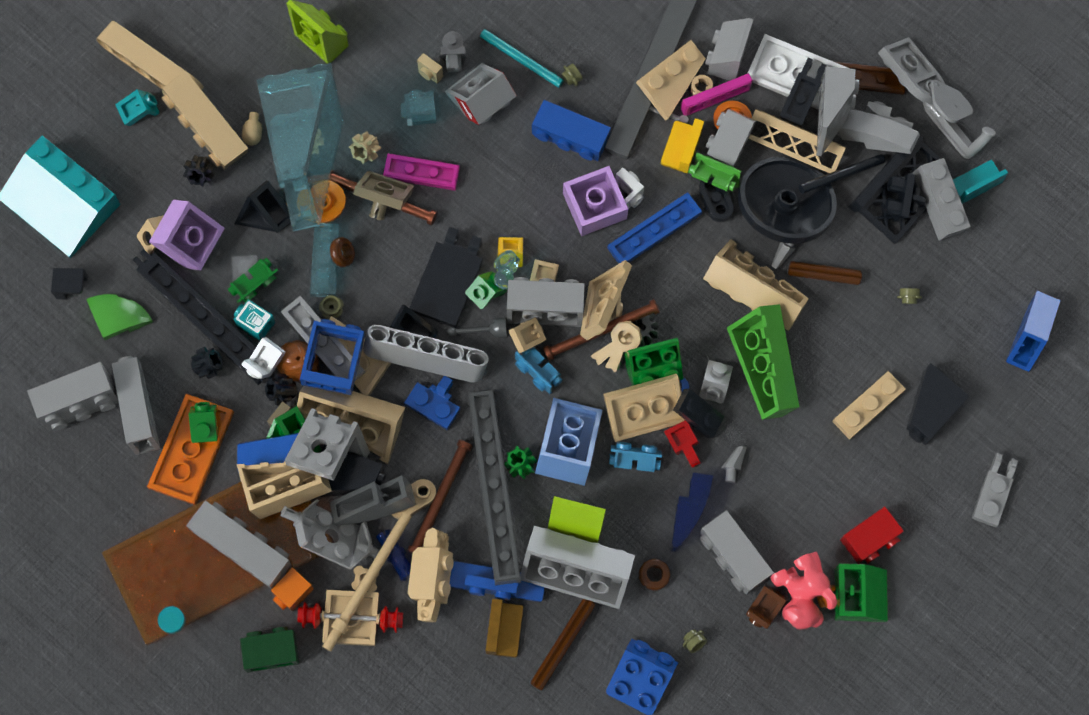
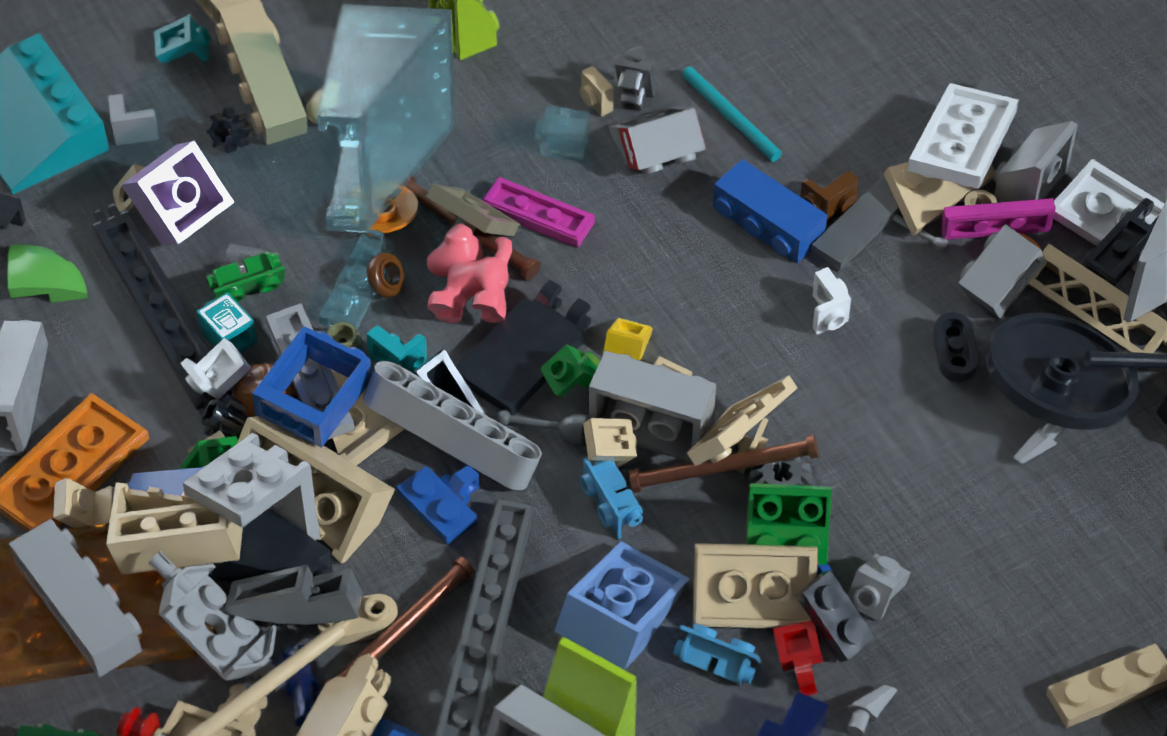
camera: 20 degrees right, 20 degrees down
(130, 181) = (131, 126): none -> light grey panel
(203, 422) = (96, 430): green bracket -> none
(206, 362) = (136, 359): black gear -> none
(217, 477) = (81, 506): none -> tan bracket
(264, 210) = (297, 196): black slope -> none
(291, 590) = (125, 686): orange brick -> none
(365, 147) = (469, 158): tan gear -> none
(366, 308) = (390, 348): none -> teal bracket
(387, 229) = (469, 276): none -> coral animal
(506, 265) = (615, 342): clear light blue plate -> none
(517, 456) = (537, 609): green gear -> none
(571, 75) = (795, 147): olive plate -> none
(595, 200) = (773, 301): lavender brick -> none
(612, 107) = (835, 197): none -> reddish brown bracket
(624, 338) = (751, 468): tan piece -> none
(655, 229) = (853, 362): blue plate -> none
(680, 42) = (963, 136): none -> white plate
(682, 145) = (928, 271): yellow panel -> none
(725, 176) = (973, 313): bright green hinge -> none
(752, 284) = (978, 473): tan wedge -> none
(766, 360) = (963, 569): bright green wedge -> none
(825, 273) = (1093, 486): reddish brown axle -> none

